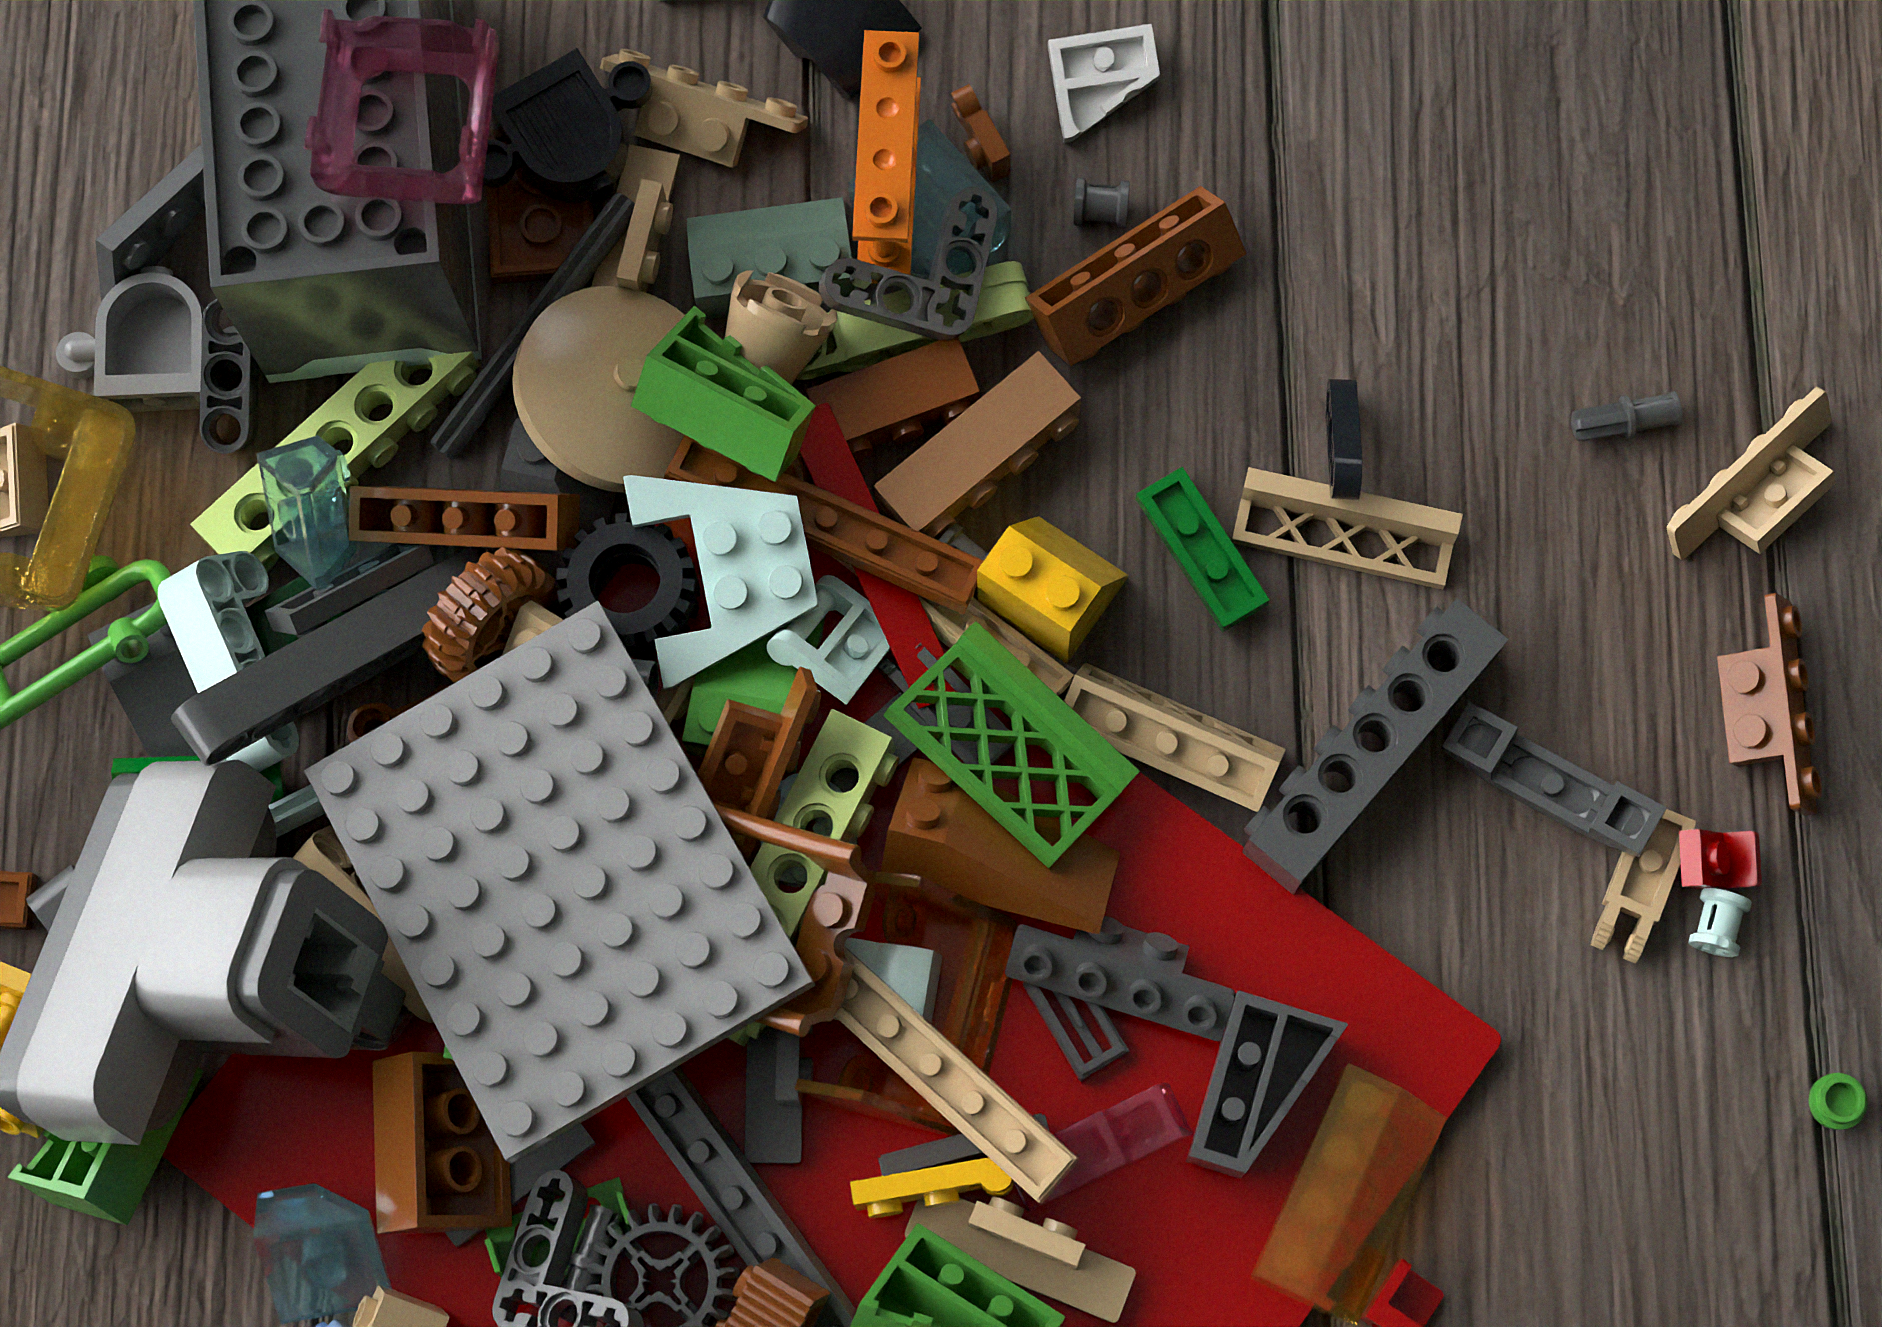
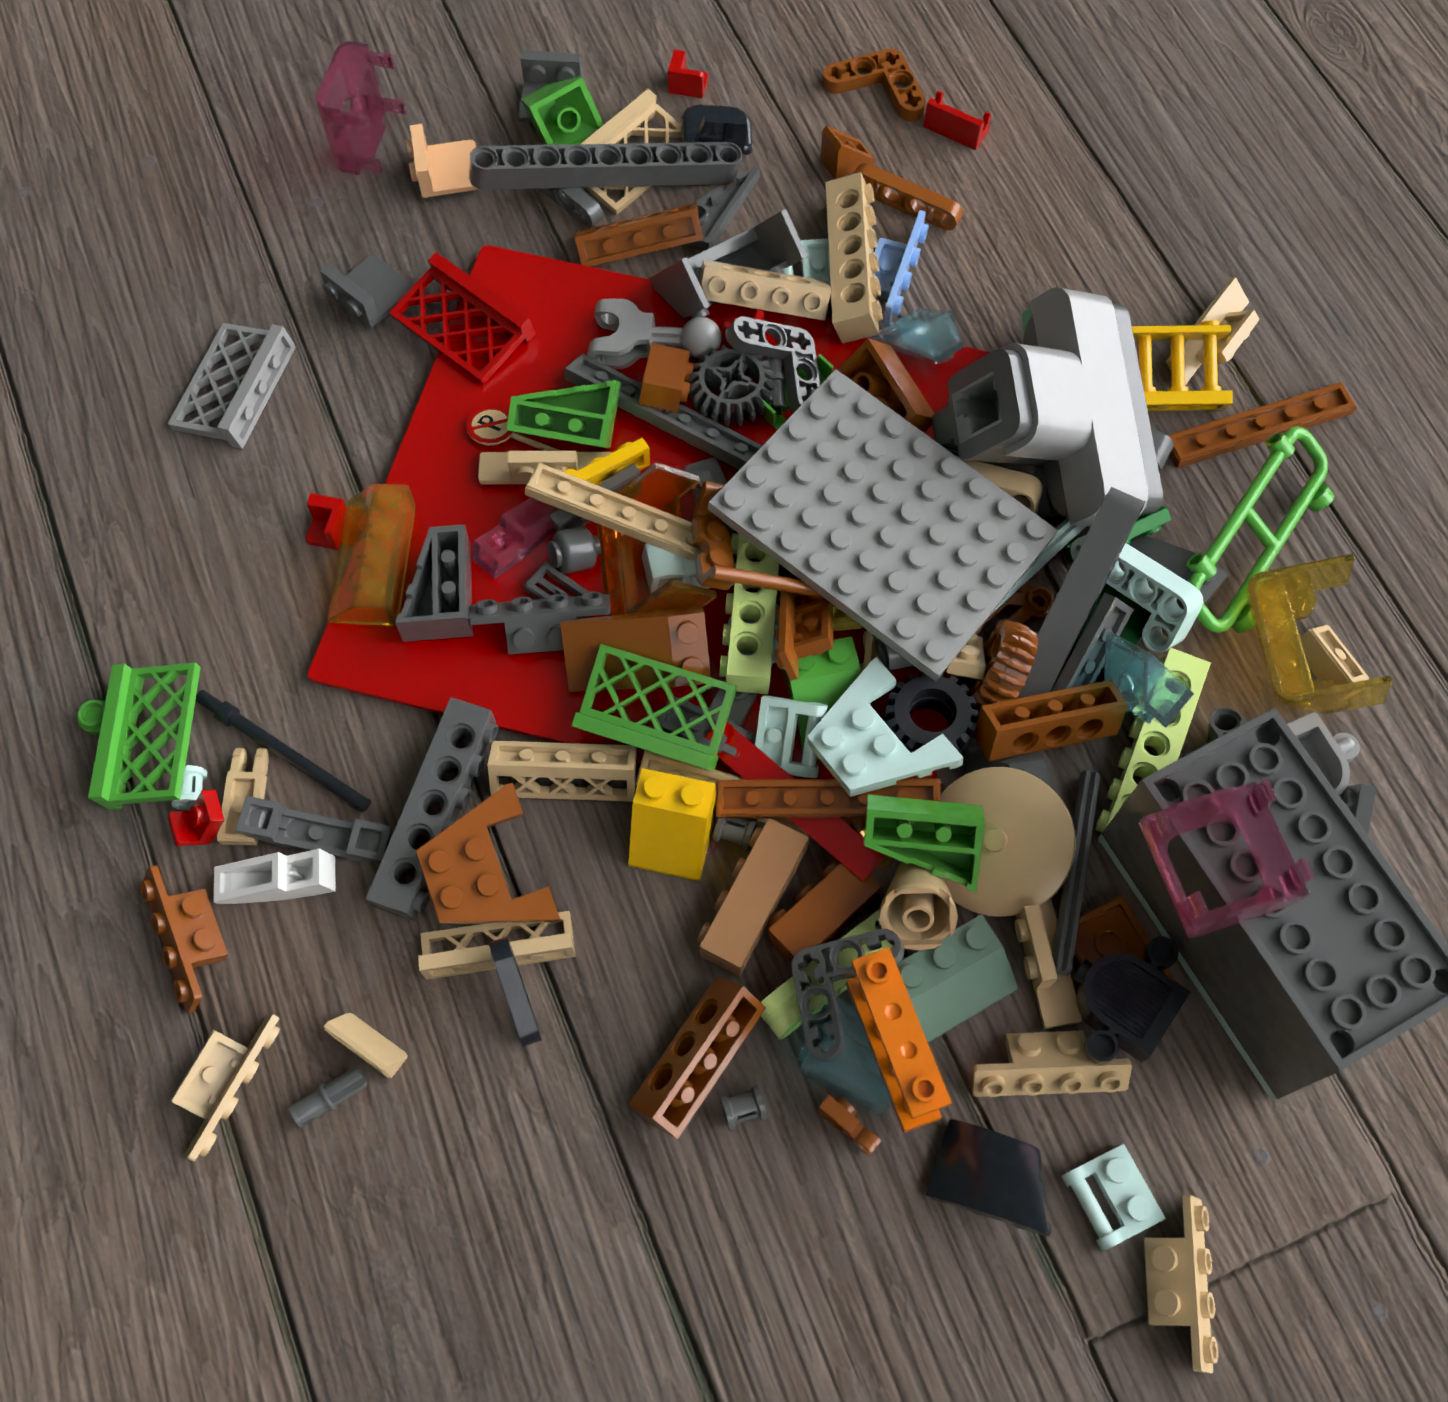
camera: 155 degrees right, 10 degrees down
(1033, 1072) = (573, 549): none -> dark grey head
(1100, 74) = (784, 1210): white wing -> none
(1202, 549) = (586, 894): green plate -> none
(1359, 619) = (466, 874): none -> dark orange wing
(1559, 463) = (366, 1043): none -> tan slope
(1626, 737) = (275, 877): none -> white slope
(1636, 1025) = (230, 715): none -> black bar
(1812, 1035) = (120, 734): none -> bright green fence

